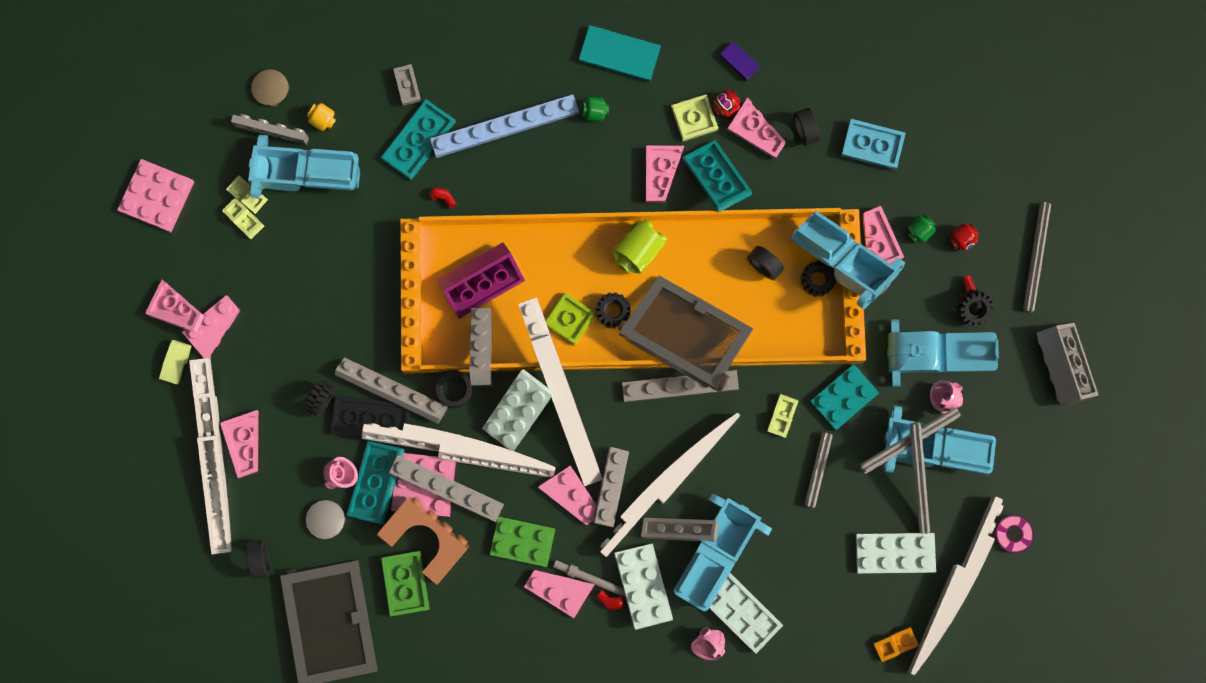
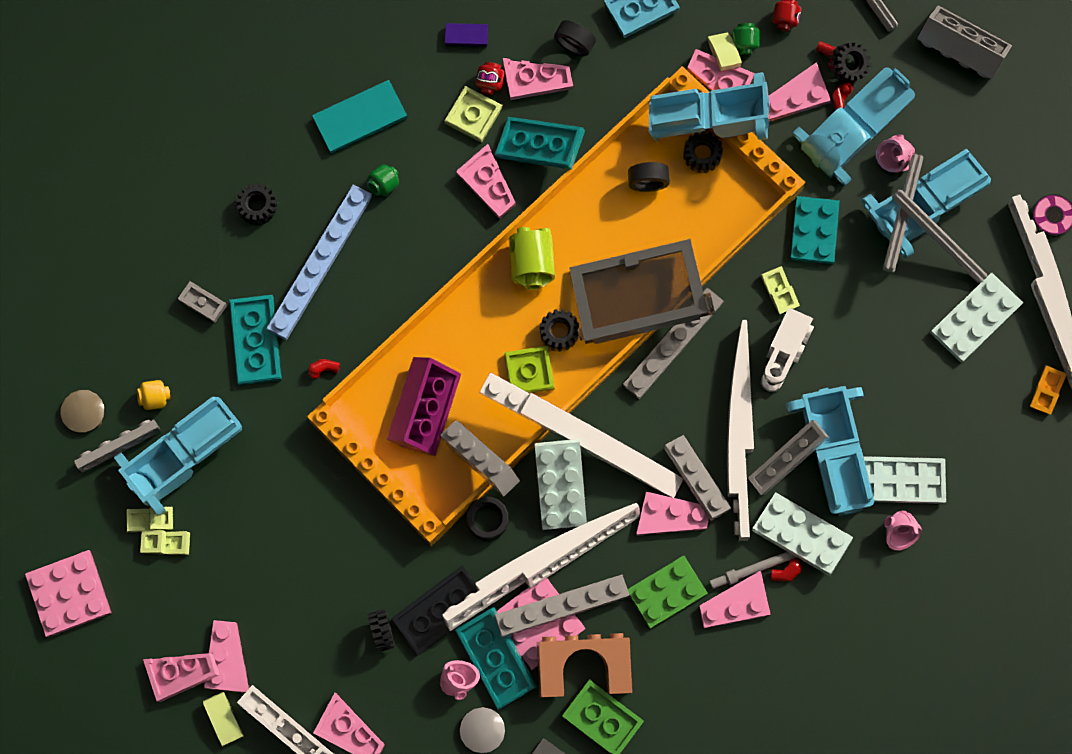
camera: 40 degrees left, 5 degrees down
(391, 390) = (434, 569): light grey plate -> none
(497, 41) = (265, 212): none -> black tyre
(748, 457) = (786, 348): none -> white brick
(818, 470) = (851, 307): light grey axle -> none
(898, 224) = (725, 51): none -> yellowish green slope
(920, 297) = (799, 94): none -> bright pink wing
(948, 323) = (841, 94): none -> red arm

